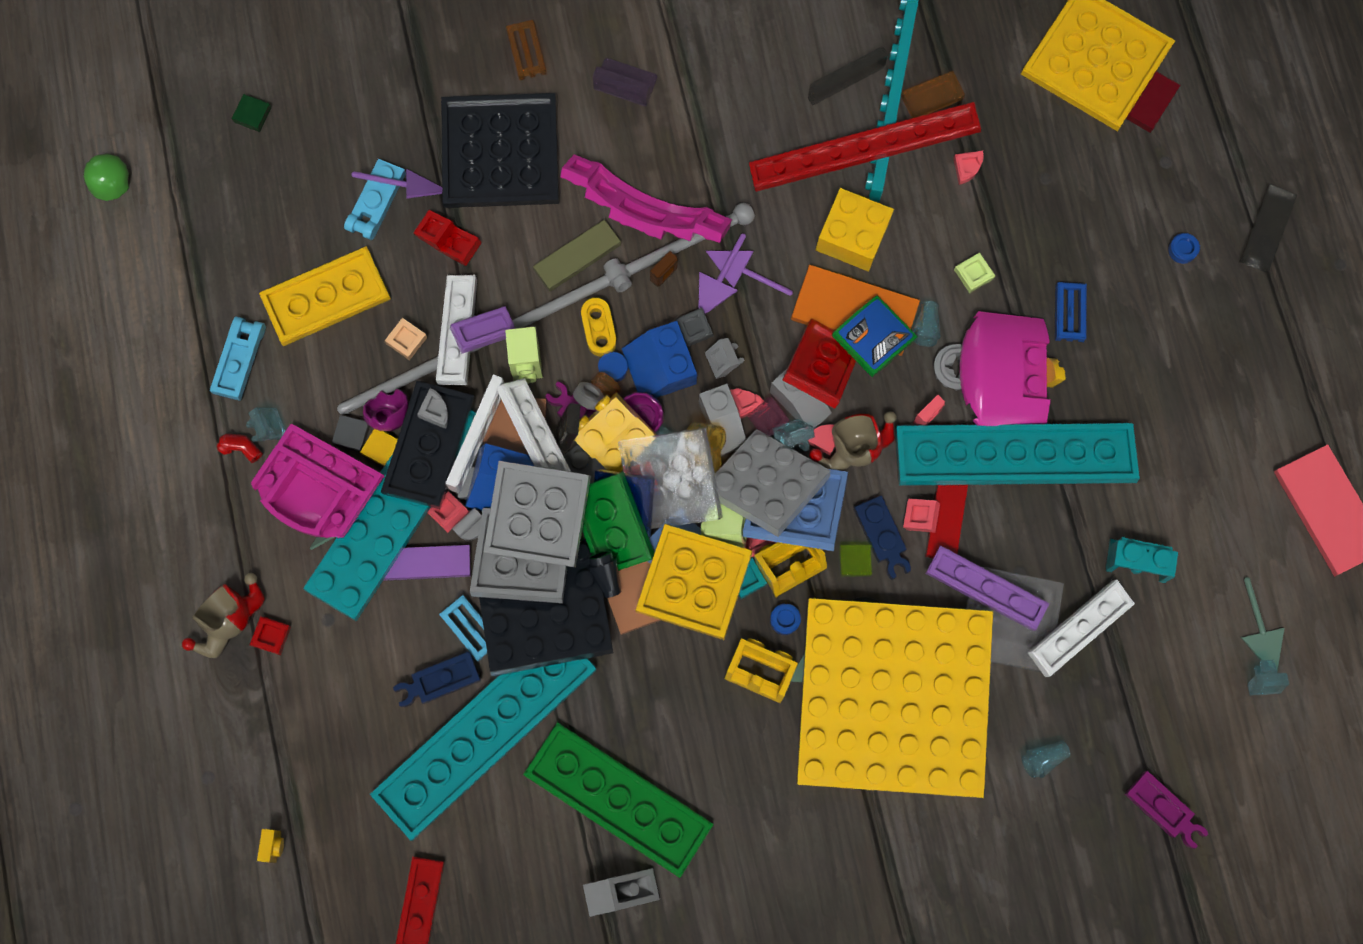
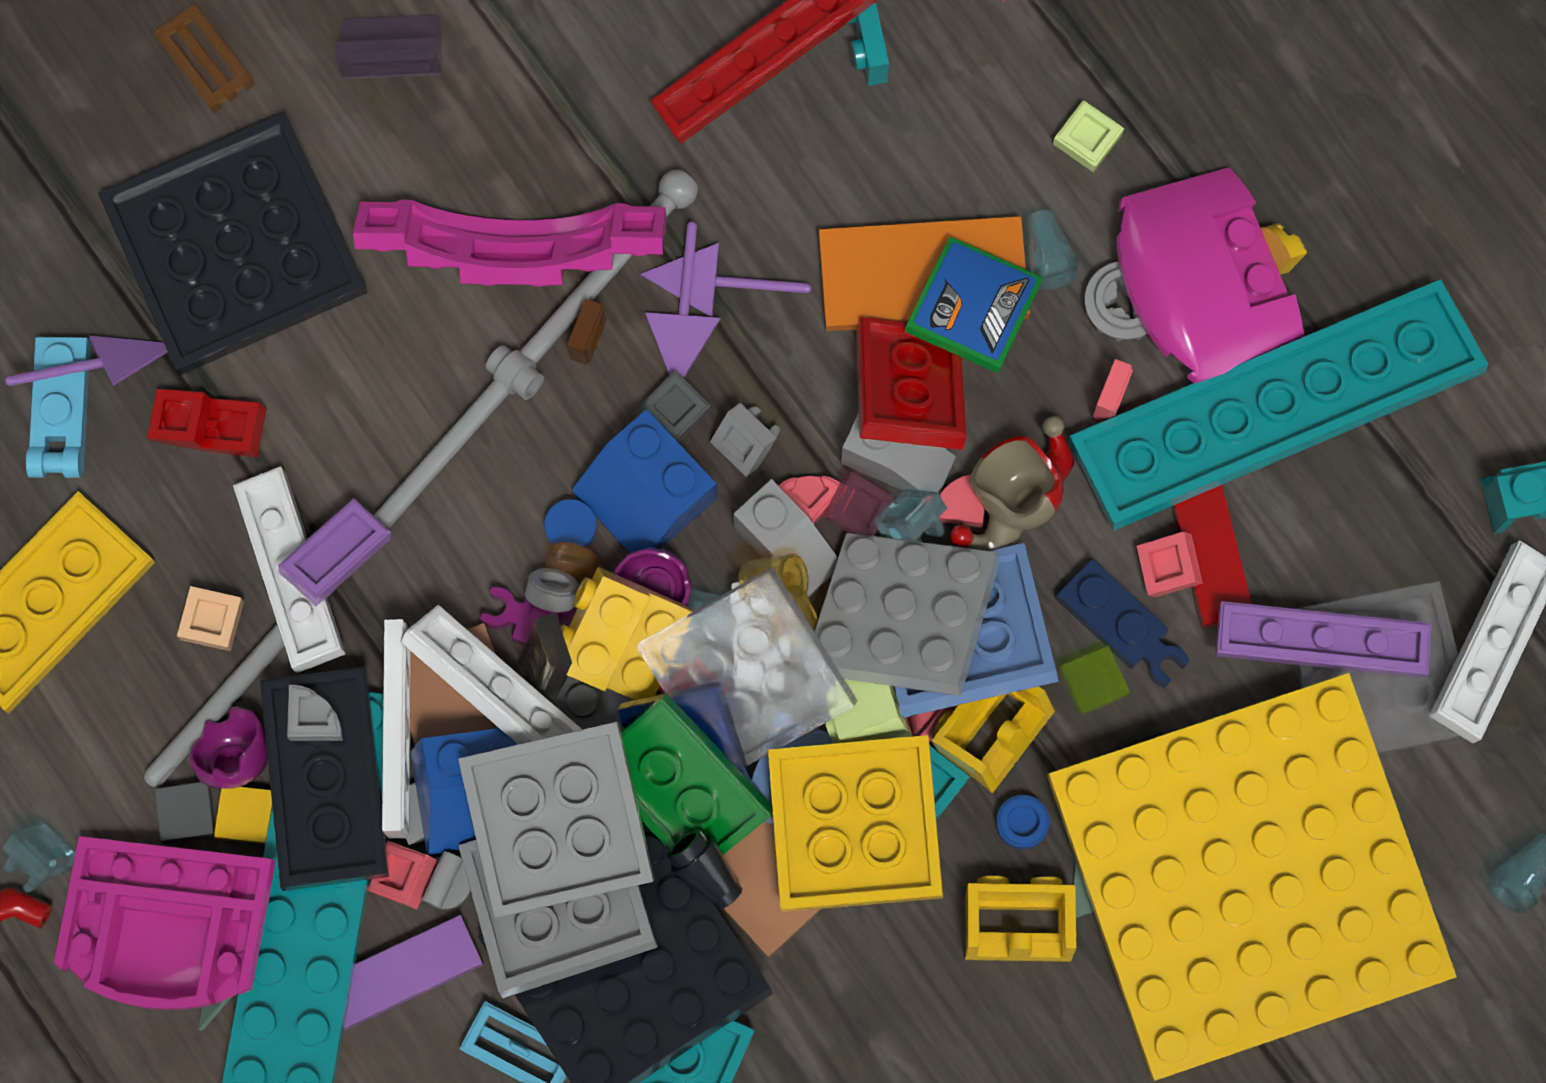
camera: 20 degrees left, 0 degrees up
(524, 354) = (420, 565): yellowish green brick -> none
(577, 255) = (433, 366): olive tile -> none
(598, 328) = (520, 472): yellow plate -> none
(854, 229) = (869, 143): yellow brick -> none
(1070, 335) = (1280, 176): blue tile -> none

